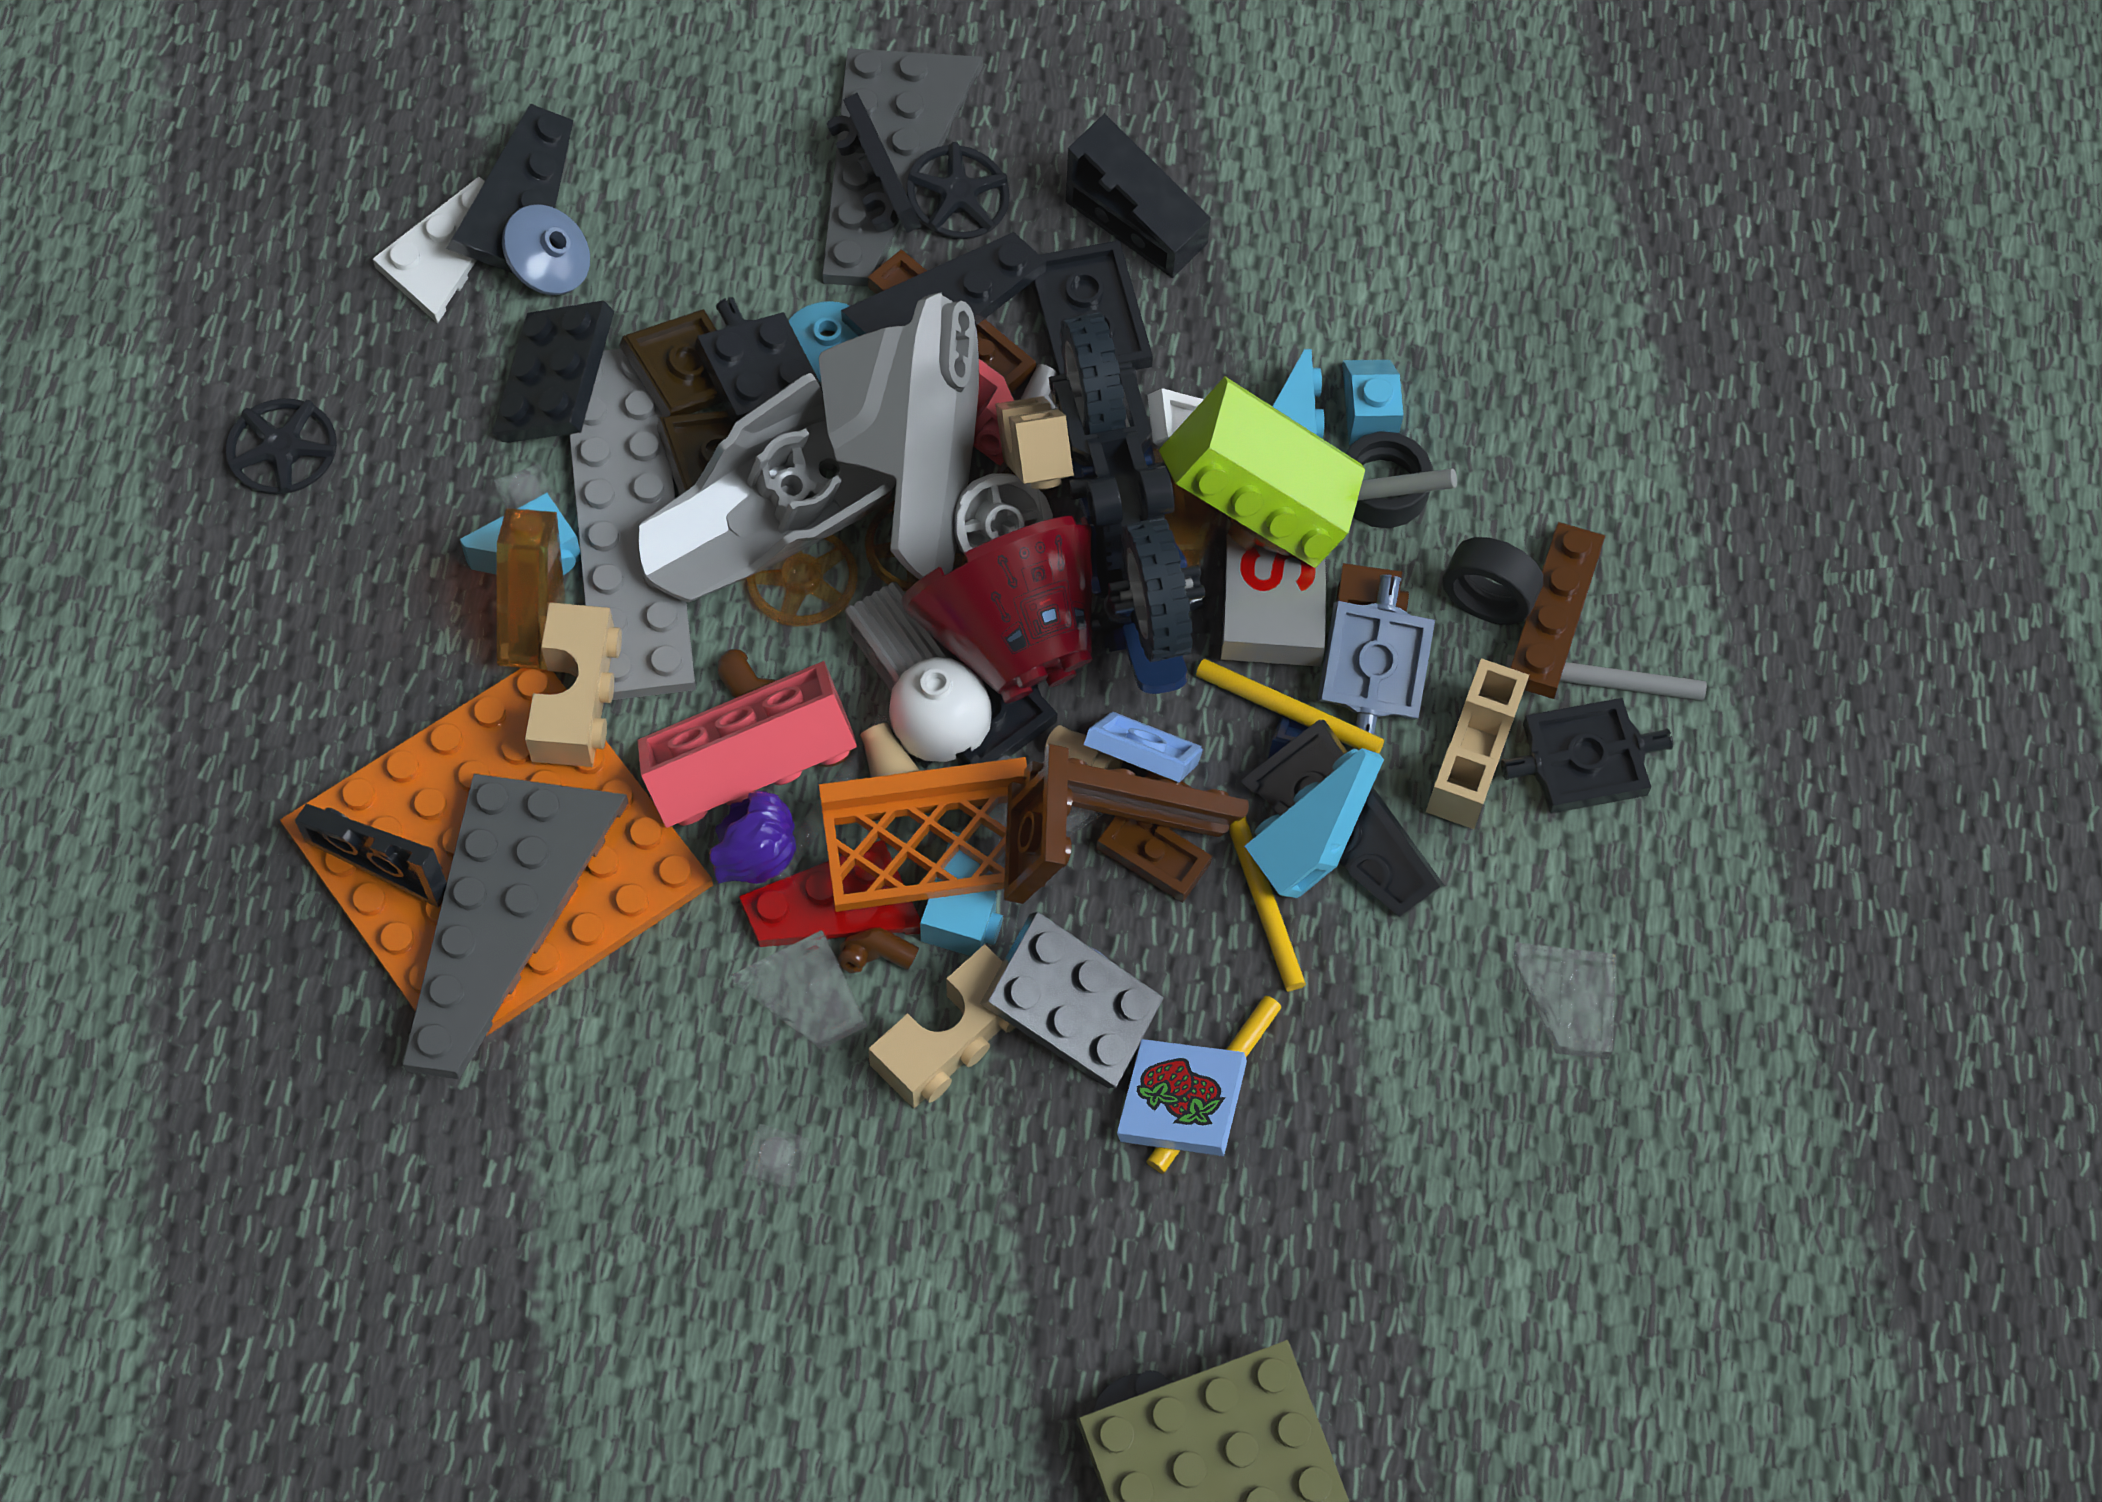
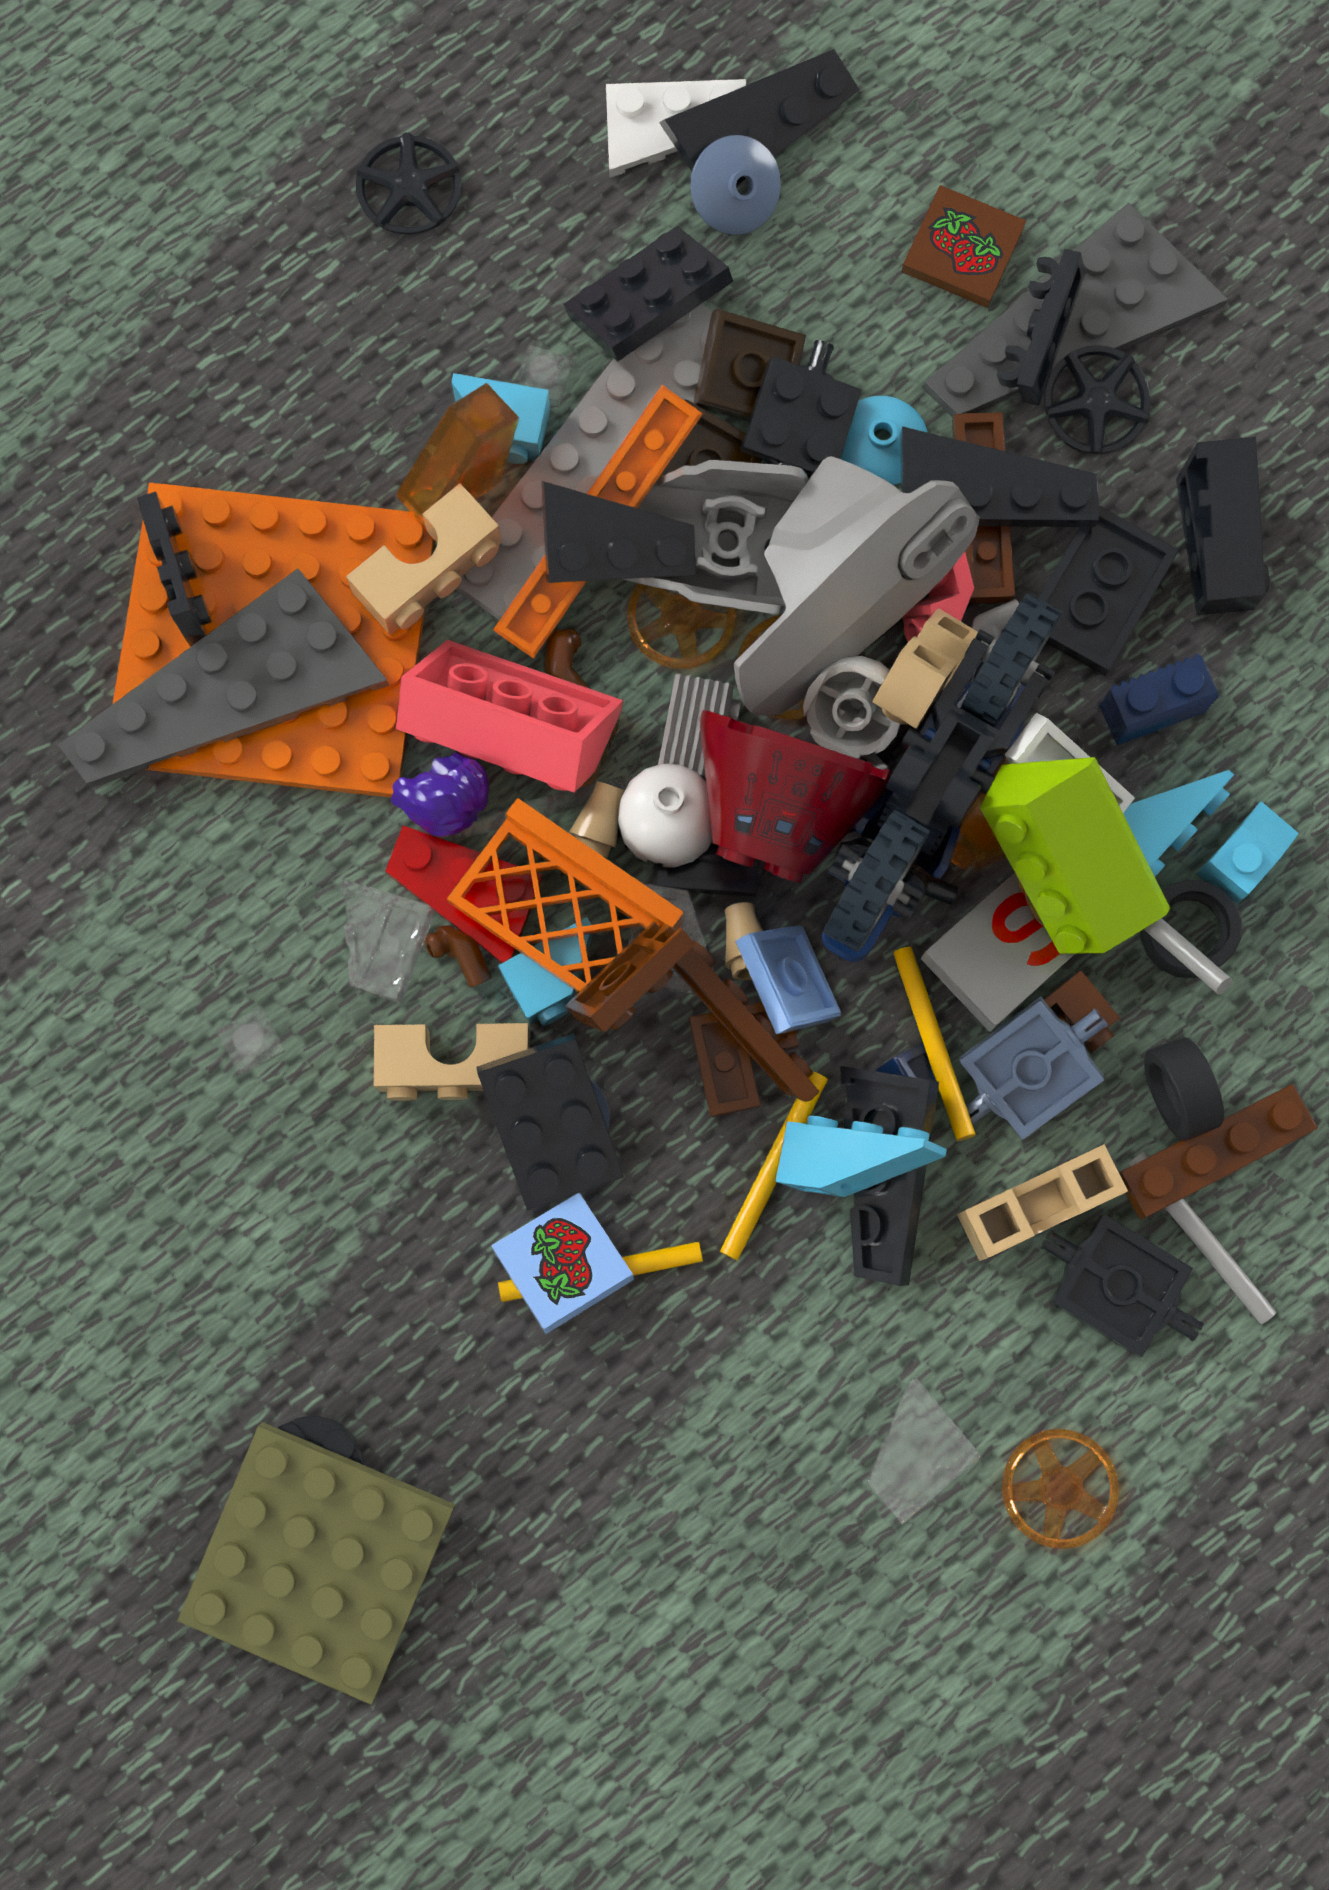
camera: 45 degrees right, 15 degrees up
(681, 552) = (625, 481): none -> orange tile
(704, 551) = (609, 540): none -> black wing
(757, 166) = (963, 246): none -> reddish brown tile
(1207, 345) = (1158, 699): none -> dark blue brick
(1689, 934) = (1059, 1488): none -> clear orange wheel

